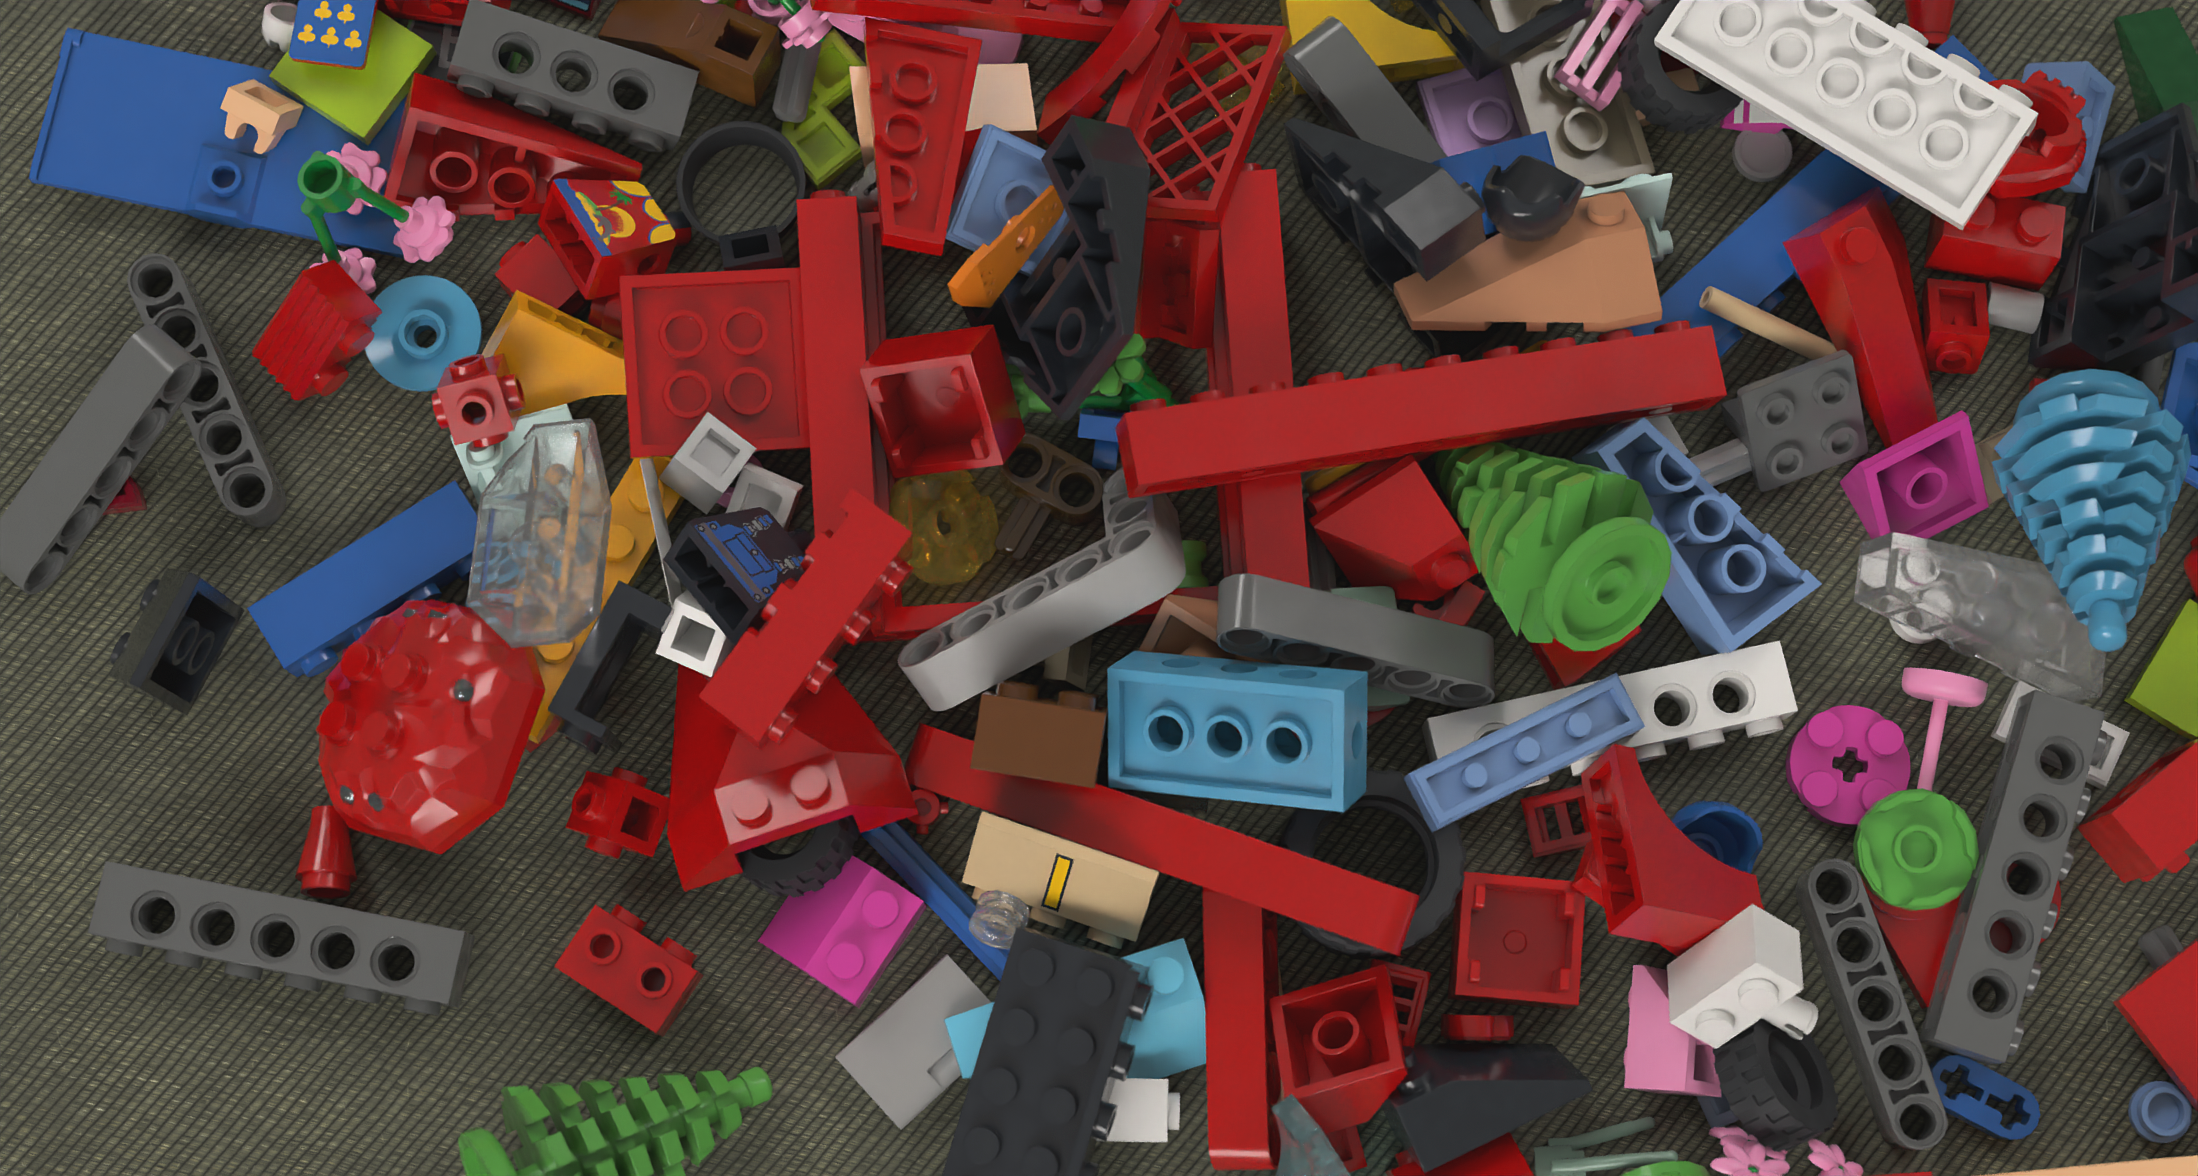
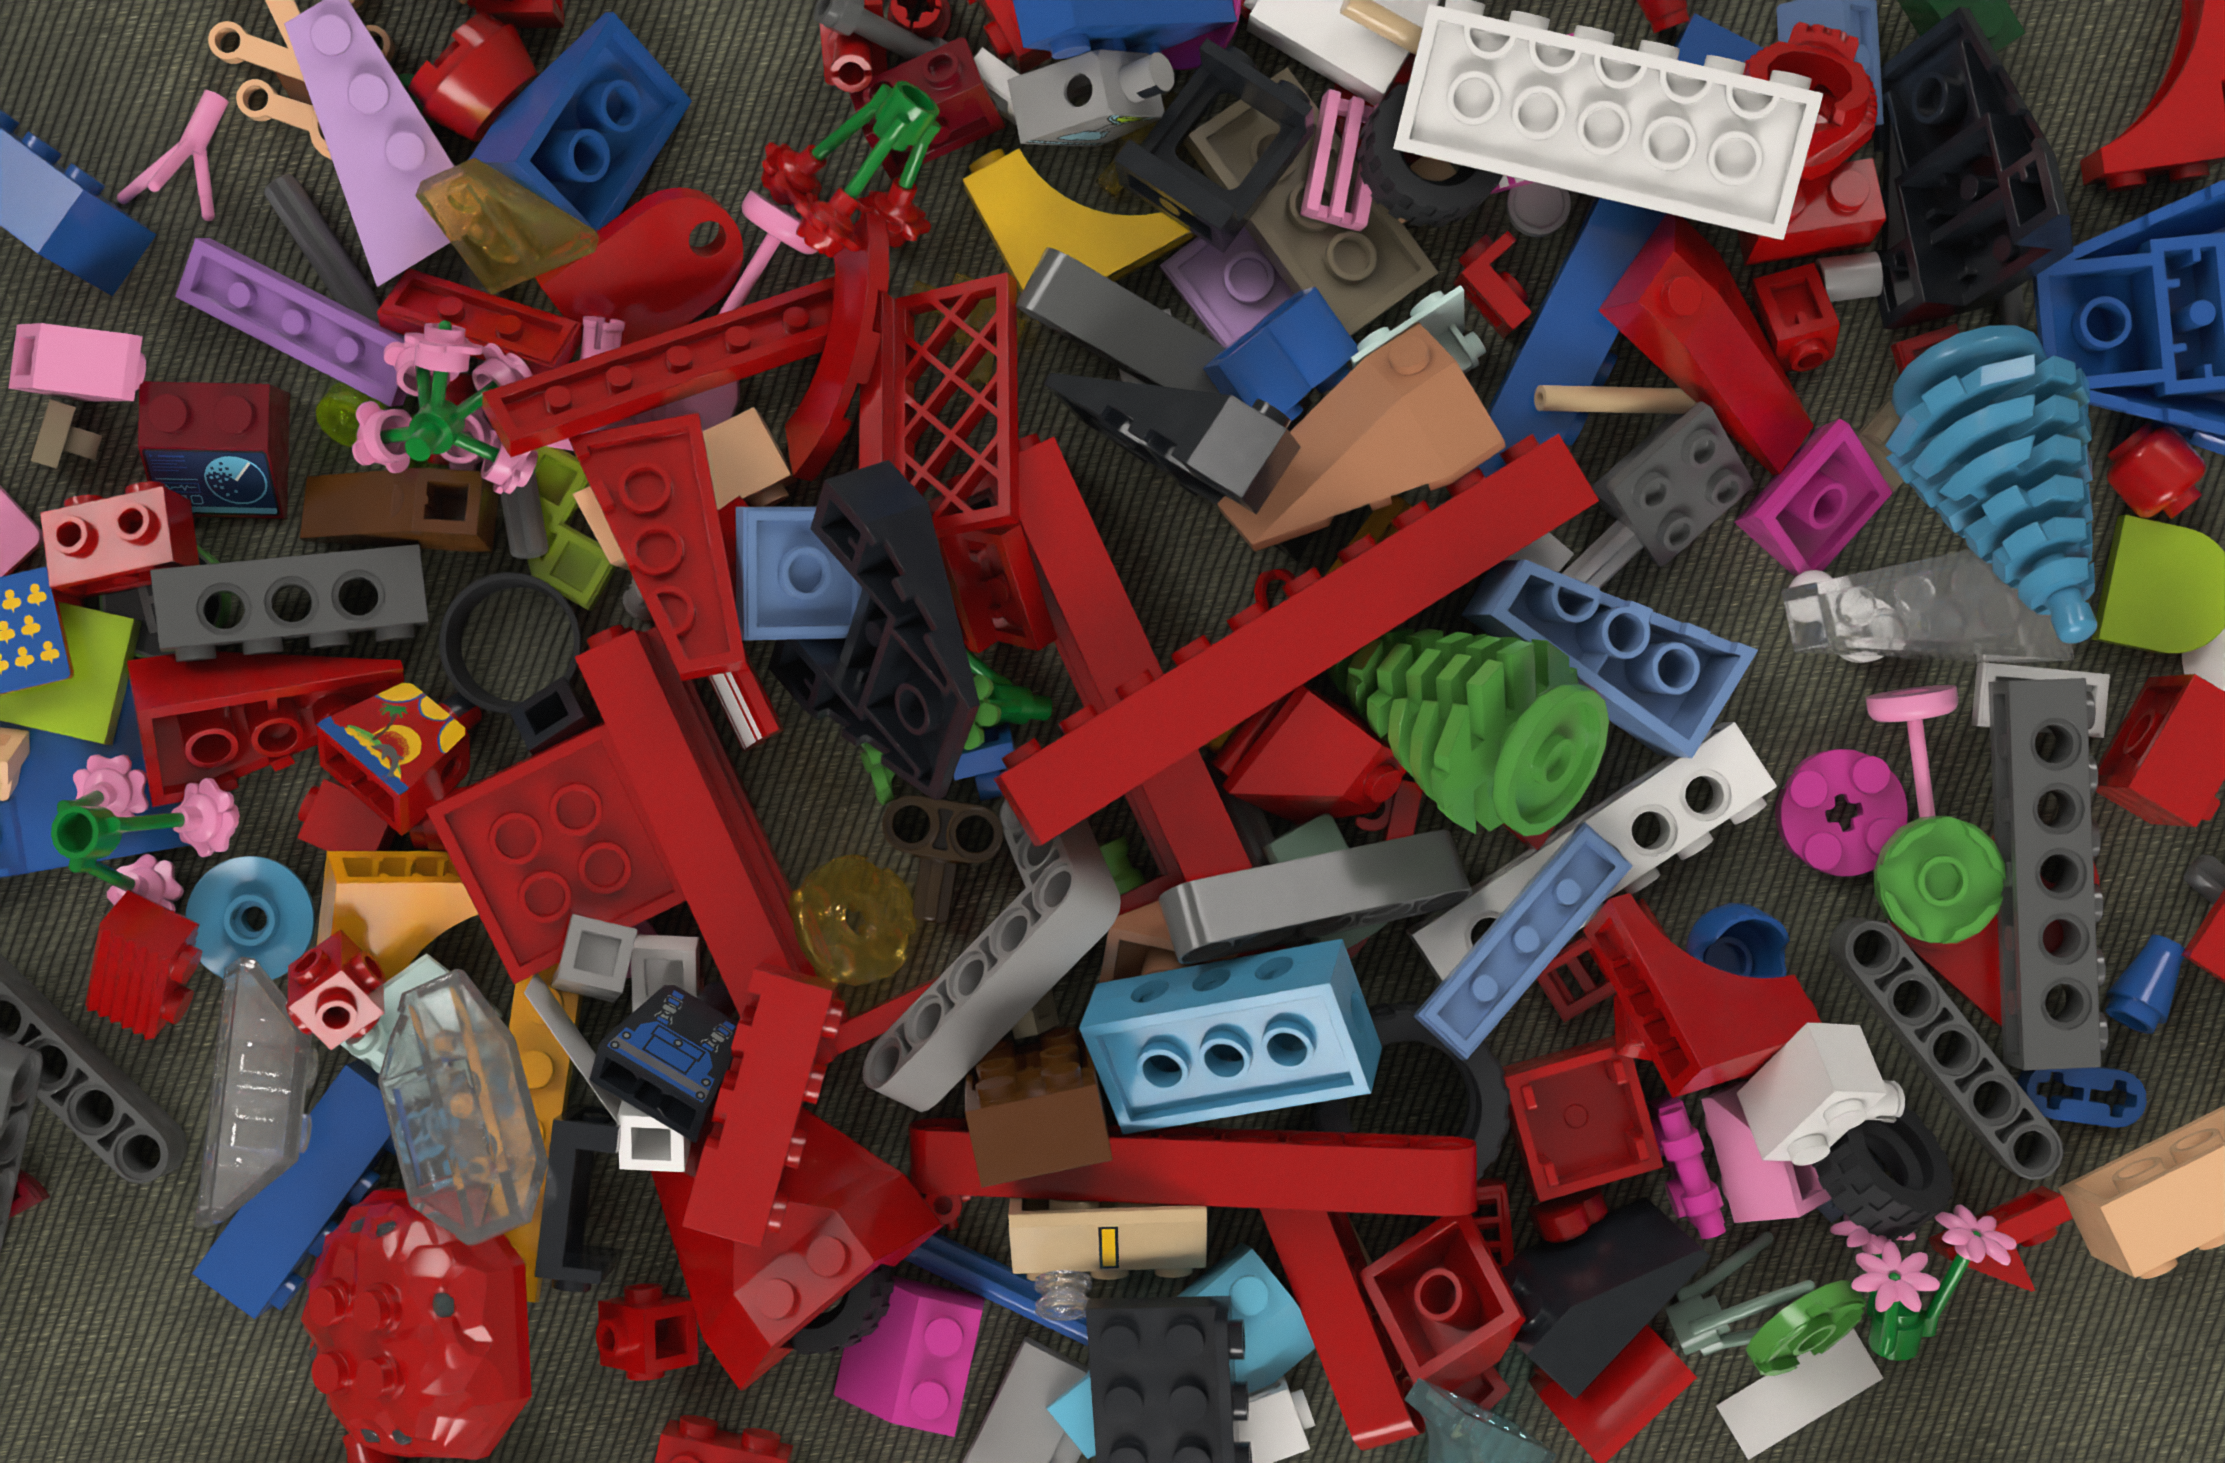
camera: 20 degrees left, 10 degrees up
(175, 639) = (132, 1334): black slope -> none
(371, 466) = (255, 1094): none -> clear wedge
(919, 292) = (746, 706): none -> red slope
(943, 401) = (806, 807): red container -> none
(994, 266) = (804, 661): orange piece -> none
(1530, 198) = (1328, 373): black hair -> none
(1598, 1043) = (1691, 1189): none -> dark pink plate
(1696, 209) = (1494, 296): none -> red bracket
(2069, 1024) = (2147, 986): none -> blue cone

